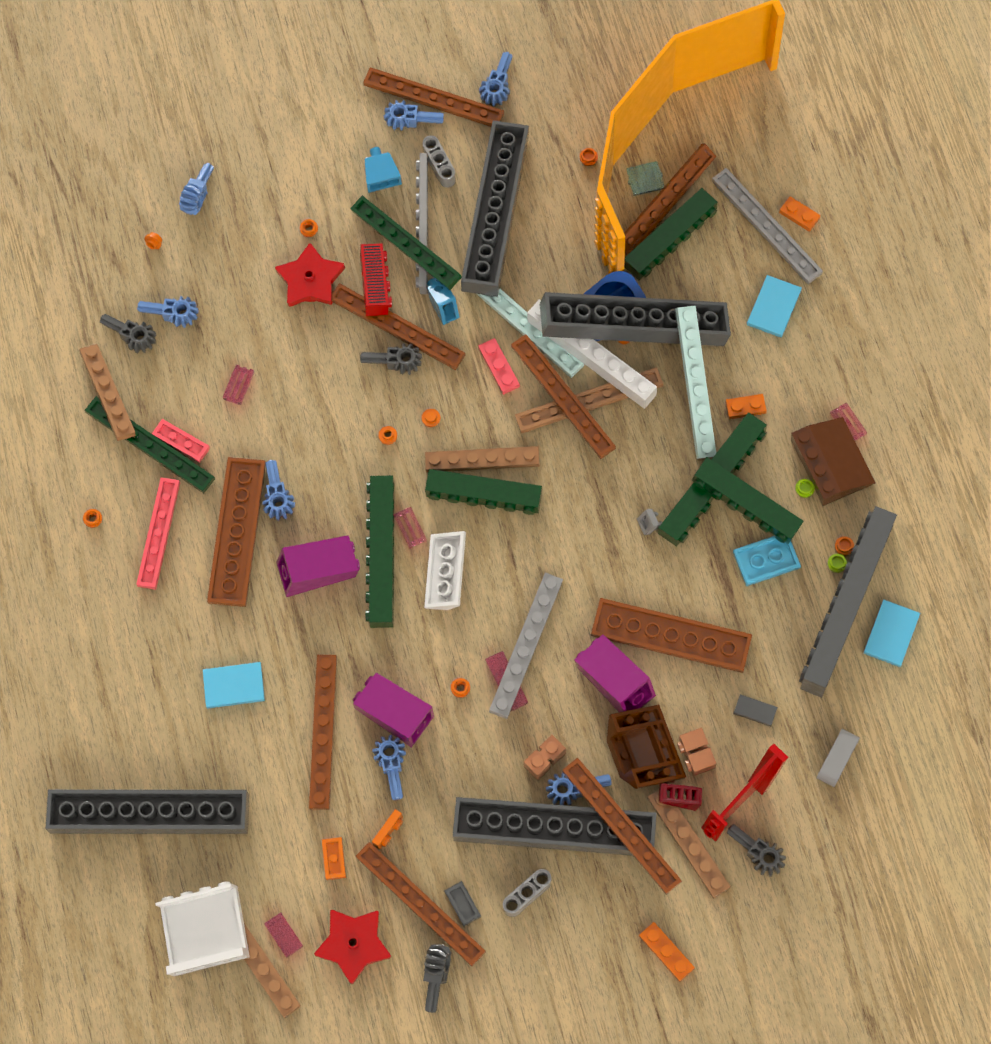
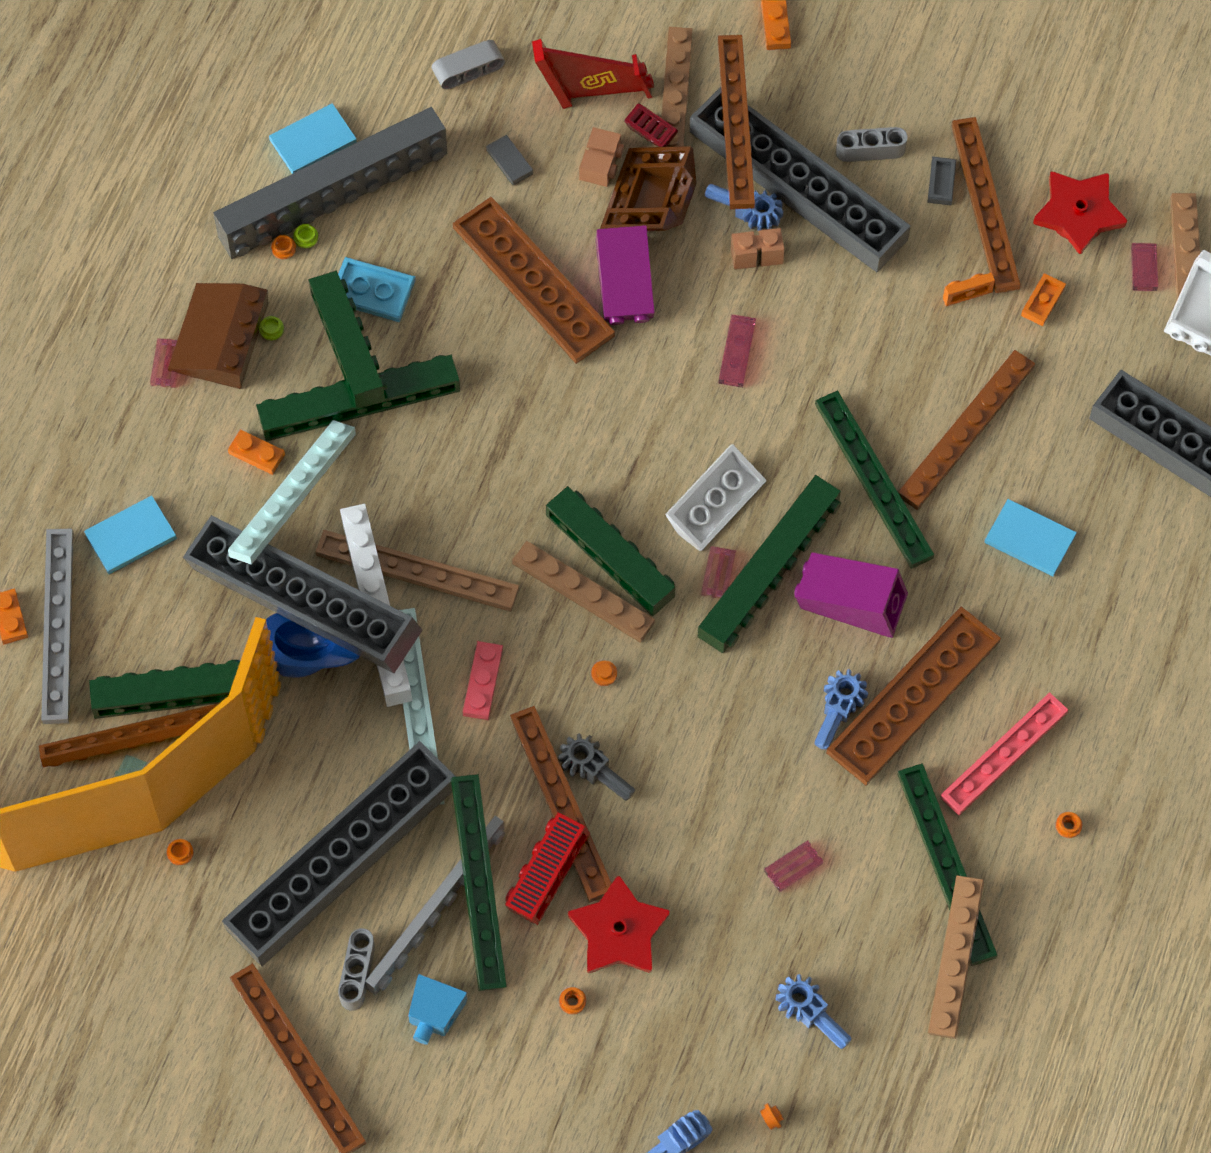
camera: 150 degrees left, 5 degrees down
(130, 332) = (878, 1017): dark grey gear -> none
(181, 441) = (907, 842): coral plate -> none
(357, 653) = (874, 479): none -> dark green plate
(387, 440) = (663, 693): orange plate -> none
(391, 764) = (918, 347): medium blue gear -> none
(393, 709) = (877, 390): magenta slope -> none
(410, 116) = (343, 1053): medium blue gear -> none
(436, 972) = (1015, 130): dark grey gear -> none
(441, 296) = (492, 782): dark azure torso -> none
(457, 682) = (790, 368): orange plate -> none
(497, 81) = (204, 1023): medium blue gear -> none
(525, 646) = (689, 367): light grey plate -> none
(563, 396) = (444, 585): dark orange plate -> none
(648, 521) = (461, 401): light grey tile -> none
(758, 850) = (615, 36): dark grey gear -> none

